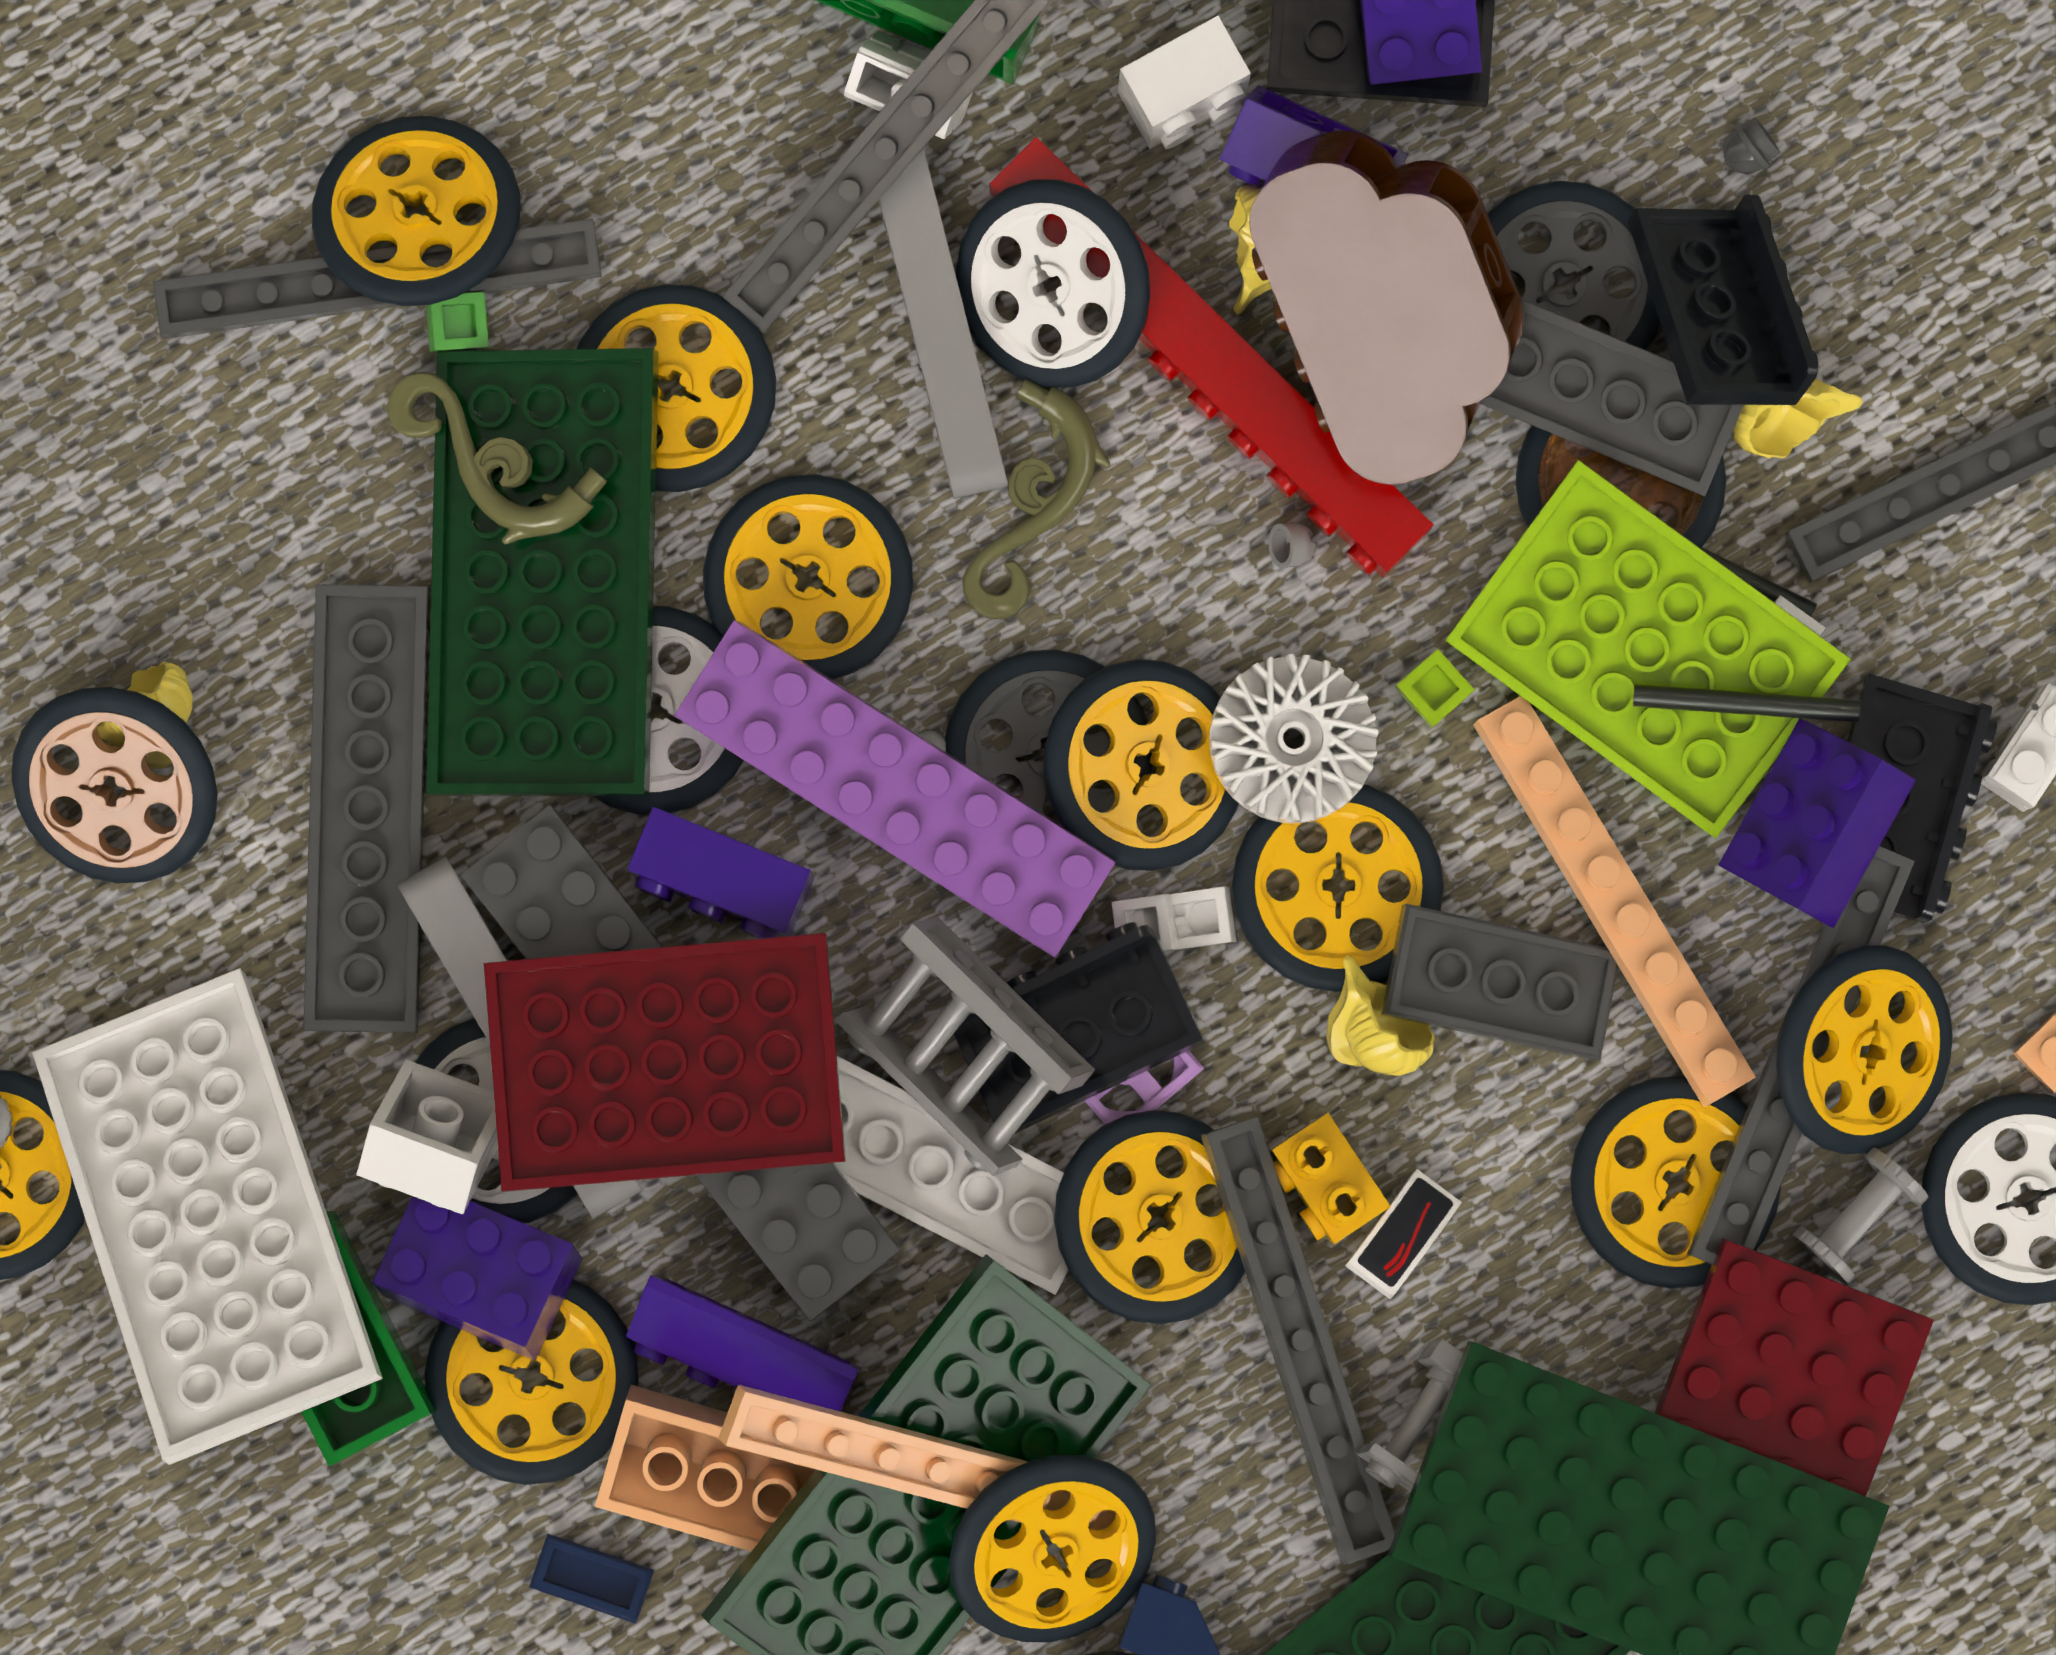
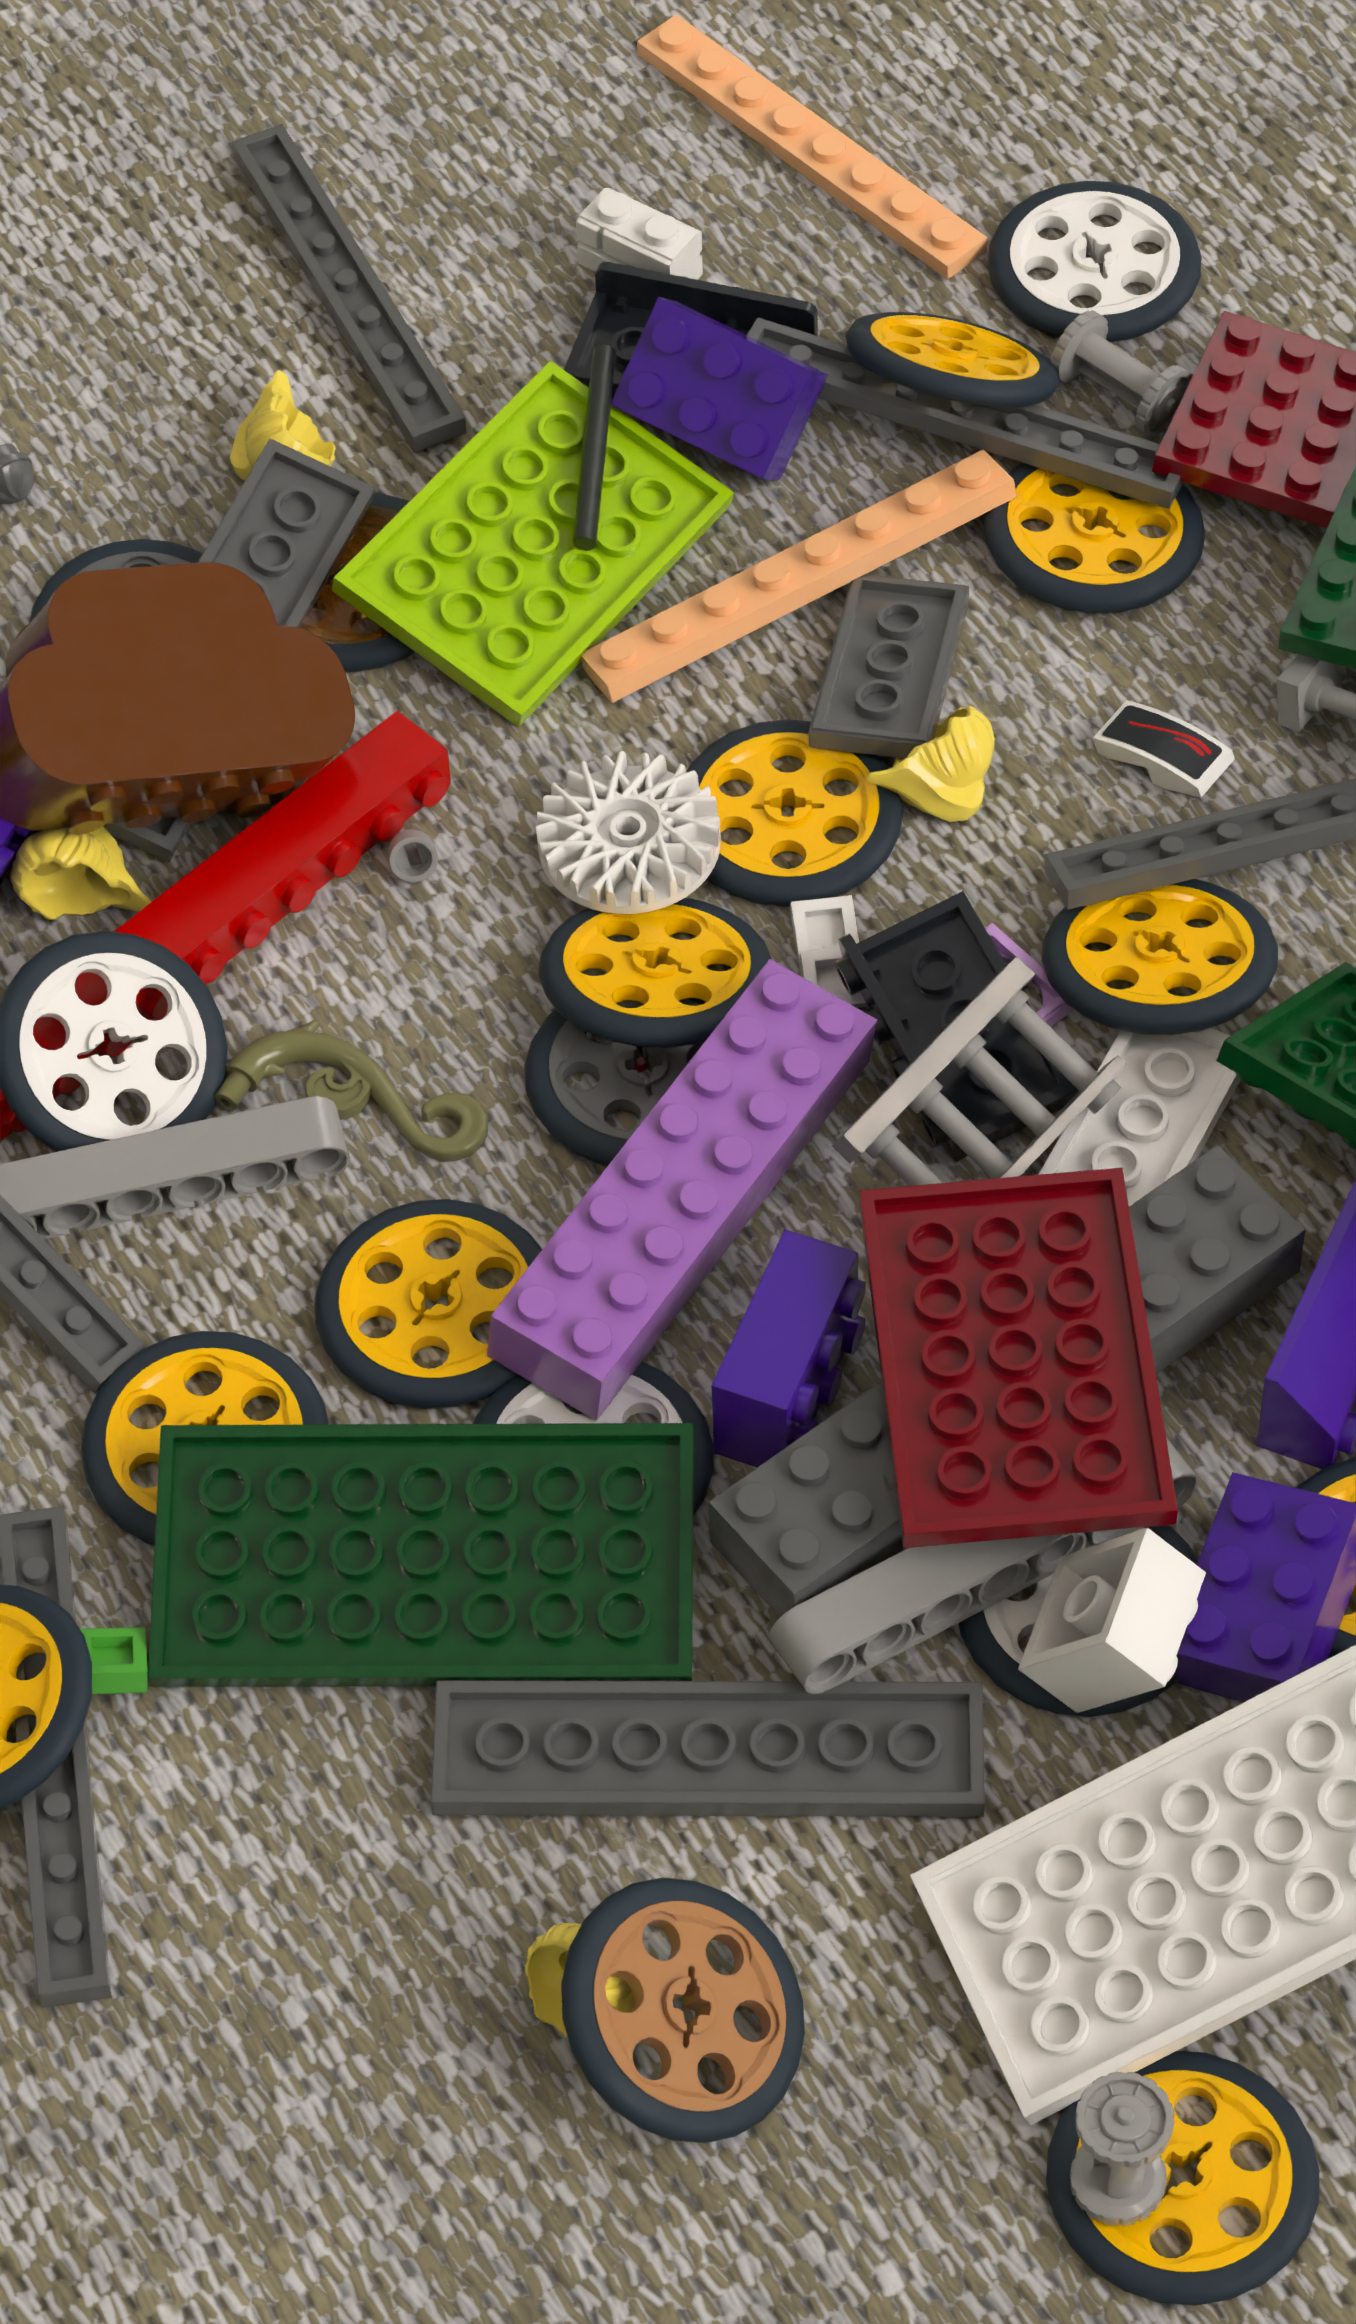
camera: 85 degrees left, 30 degrees down
(476, 467) = (297, 1618): olive plant -> none
(1328, 1180) = (1110, 794): yellow brick -> none
(1434, 688) = (573, 728): lime plate -> none
(1725, 304) = (172, 456): black bracket -> none

